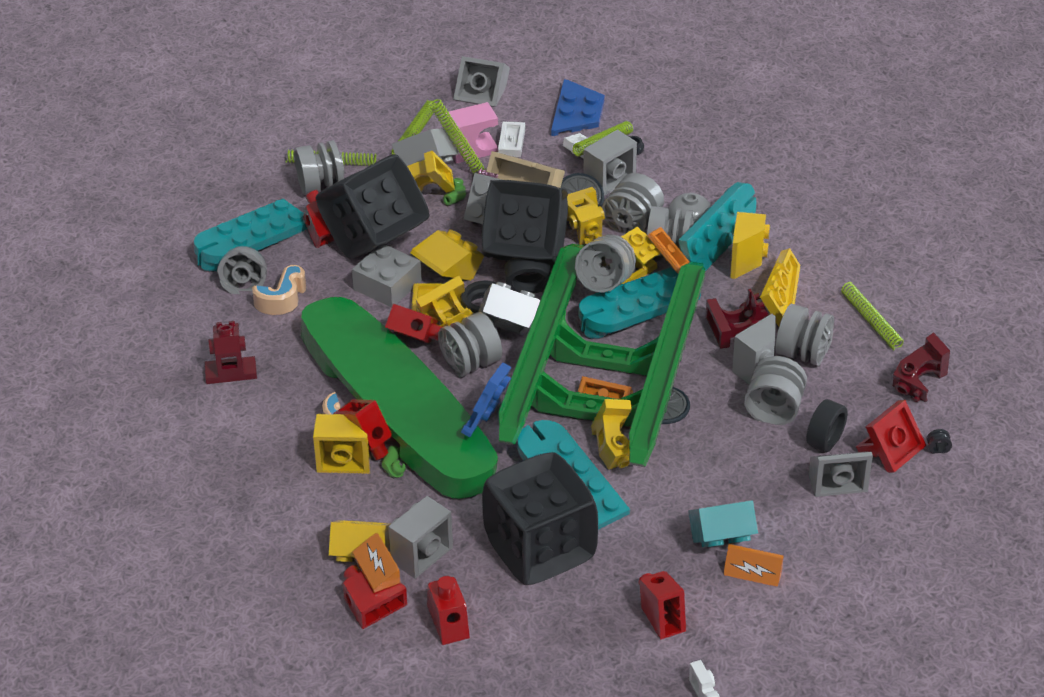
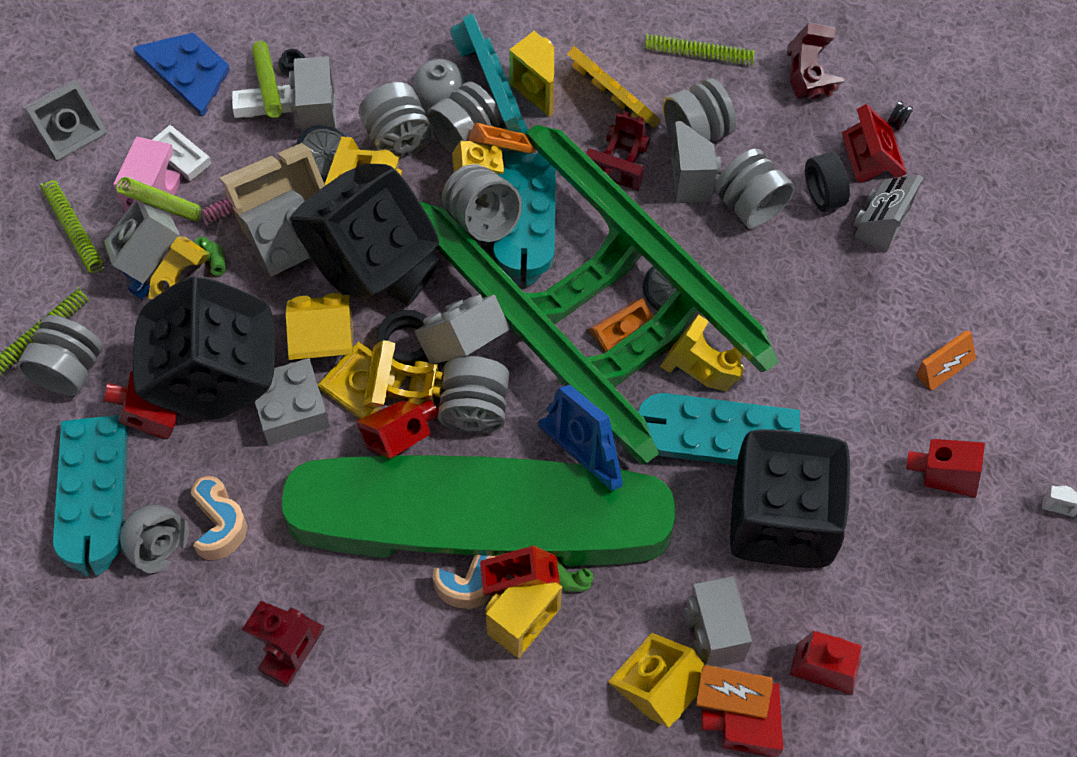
camera: 55 degrees left, 20 degrees up
(721, 522) = (895, 348): teal brick -> none

